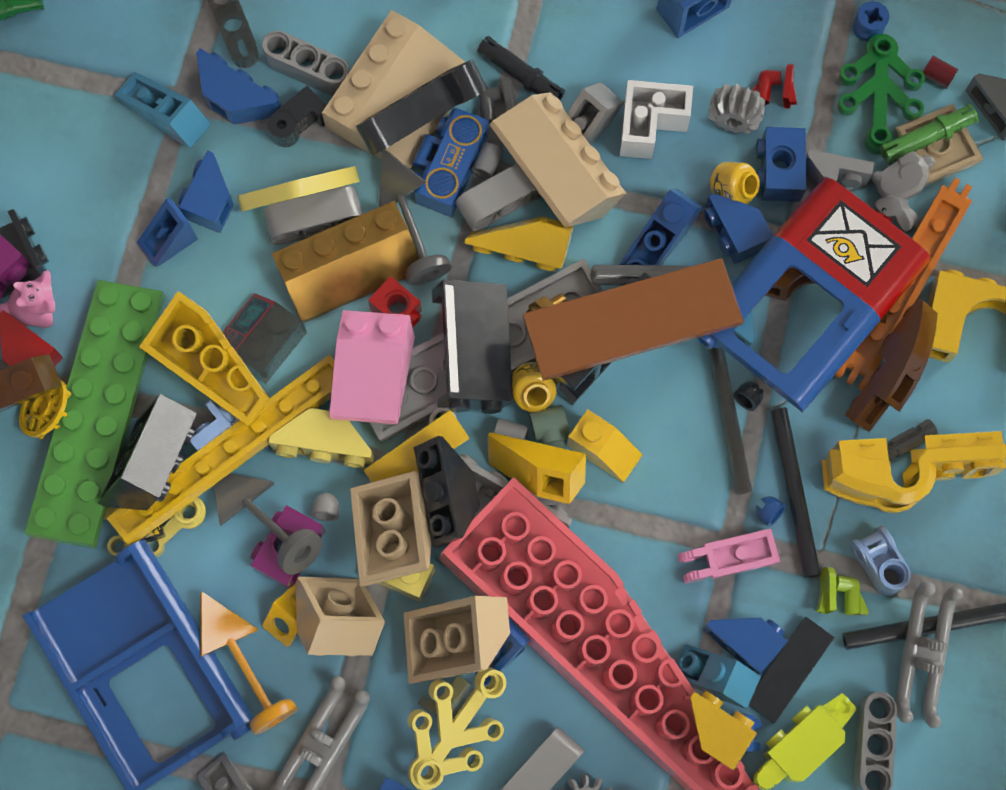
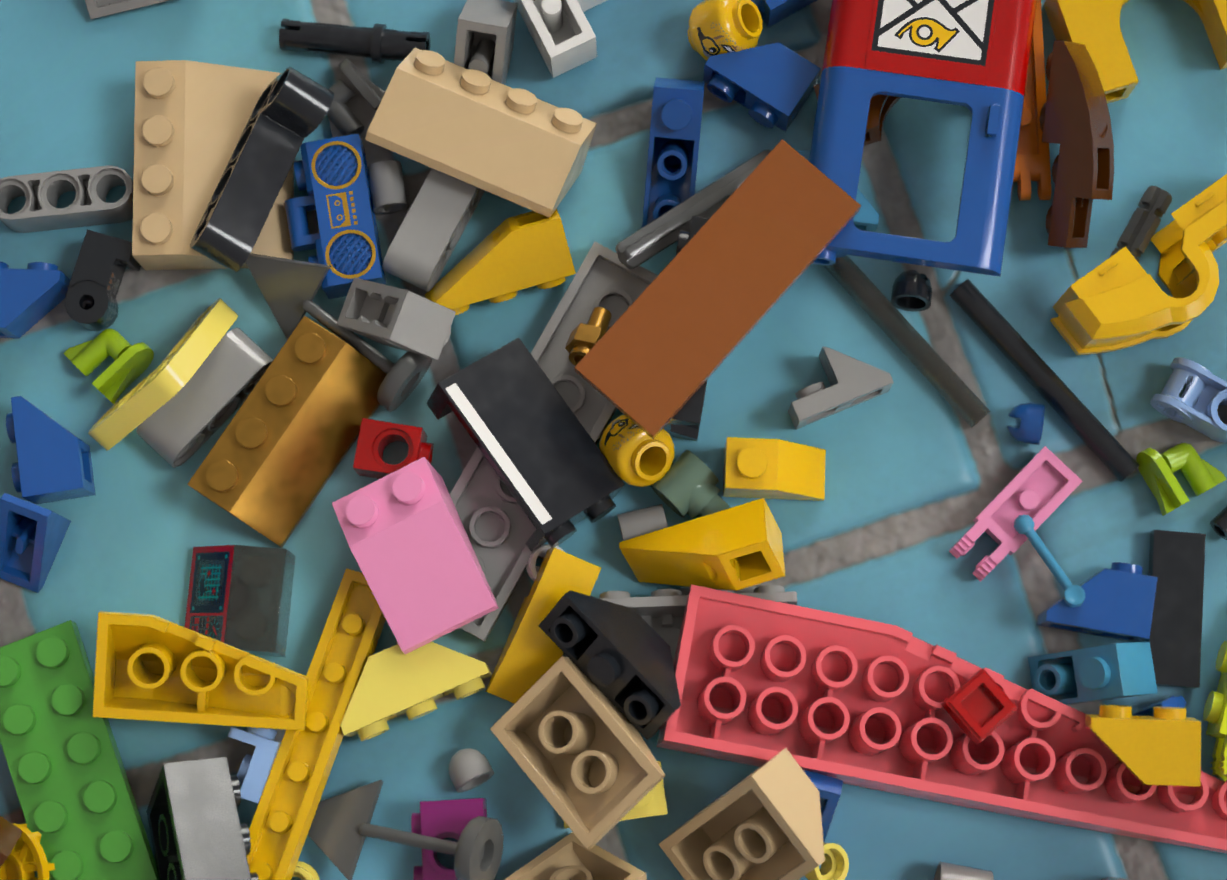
camera: 30 degrees left, 5 degrees up
(277, 174) = (127, 367): none -> lime piece
(444, 231) = (396, 318): none -> light grey brick
(635, 648) = (979, 706): none -> red tile
(680, 426) = (850, 383): none -> light grey slope
(731, 620) = (1074, 594): none -> dark azure hinge

